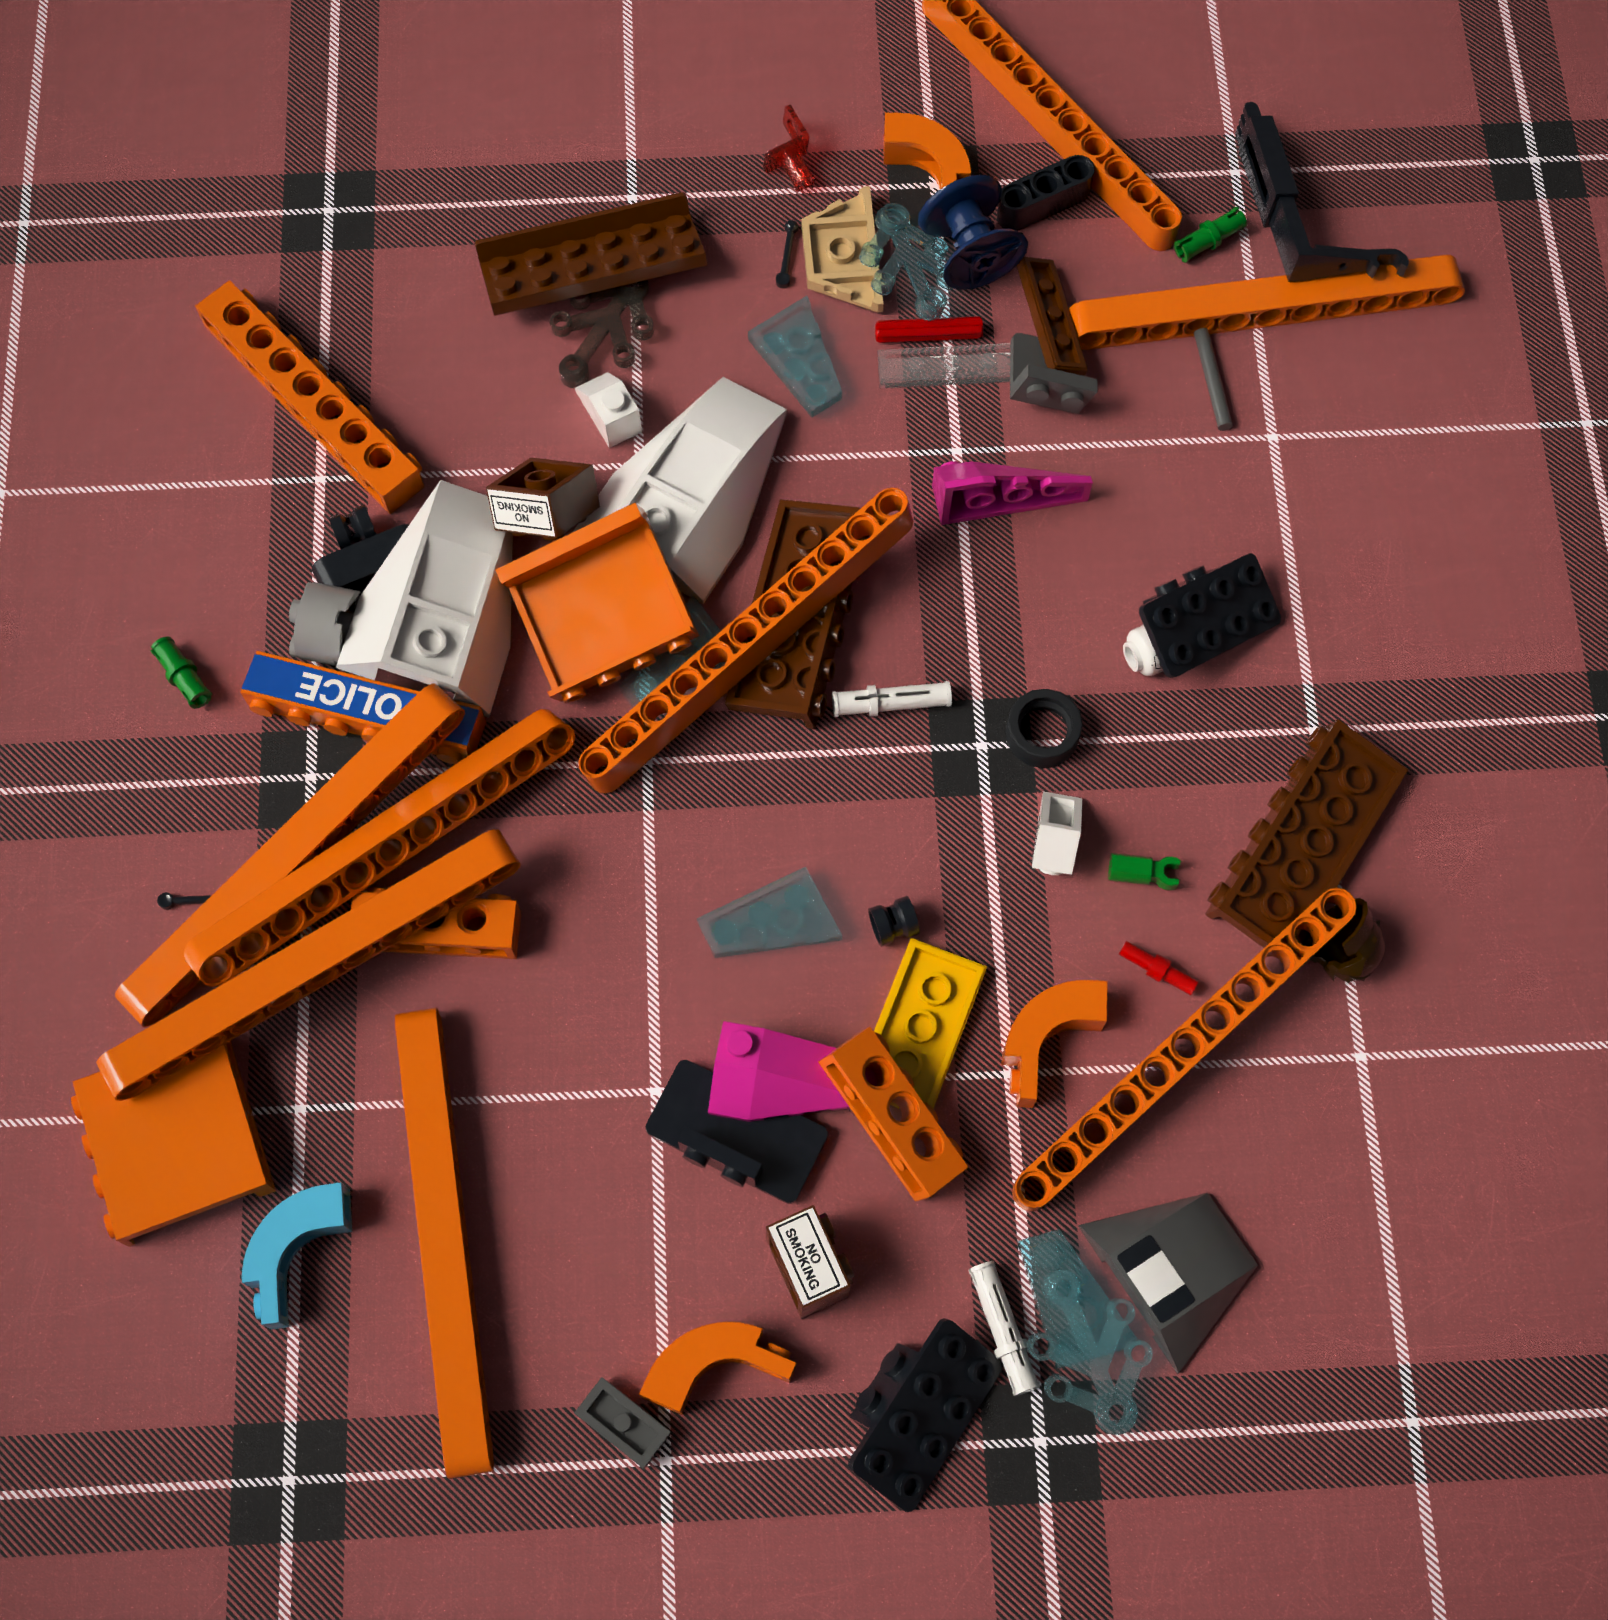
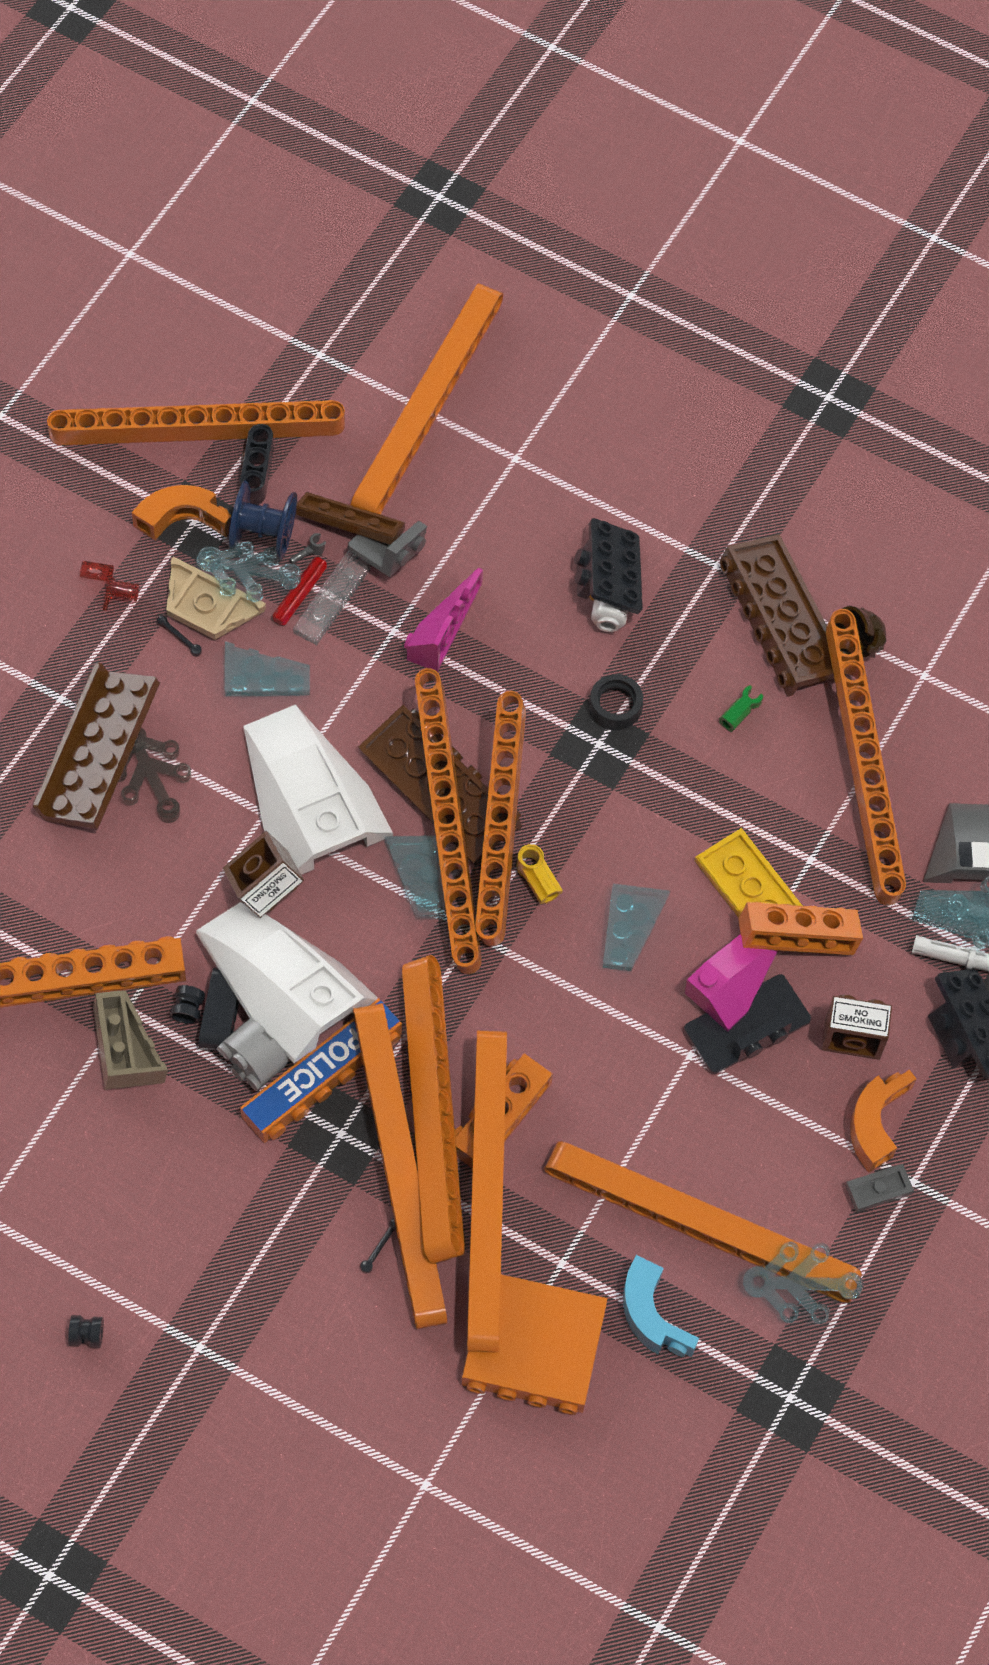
camera: 60 degrees left, 5 degrees down
(181, 672) = (212, 1167): green pin -> none
(261, 494) = (124, 1046): none -> dark tan wedge
(403, 1353) = (797, 1283): none -> clear light blue plant
(599, 603) = (362, 888): orange panel -> none
(610, 408) = (213, 802): white slope -> none
(759, 781) = (539, 875): none -> yellow piece
(778, 708) = (505, 830): none -> orange beam
(891, 699) = (550, 746): white pin -> none
(894, 921) = (680, 857): black wheel -> none
(993, 315) = (316, 549): none -> dark grey hand
(1055, 1010) = (795, 825): orange arch -> none
(1057, 834) = (688, 736): white slope -> none
(1158, 968) = (804, 740): red bar -> none
(1210, 234) = (357, 397): green pin -> none
(1213, 379) = (454, 462): dark grey bar -> none
(1276, 198) = (369, 343): black hinge -> none

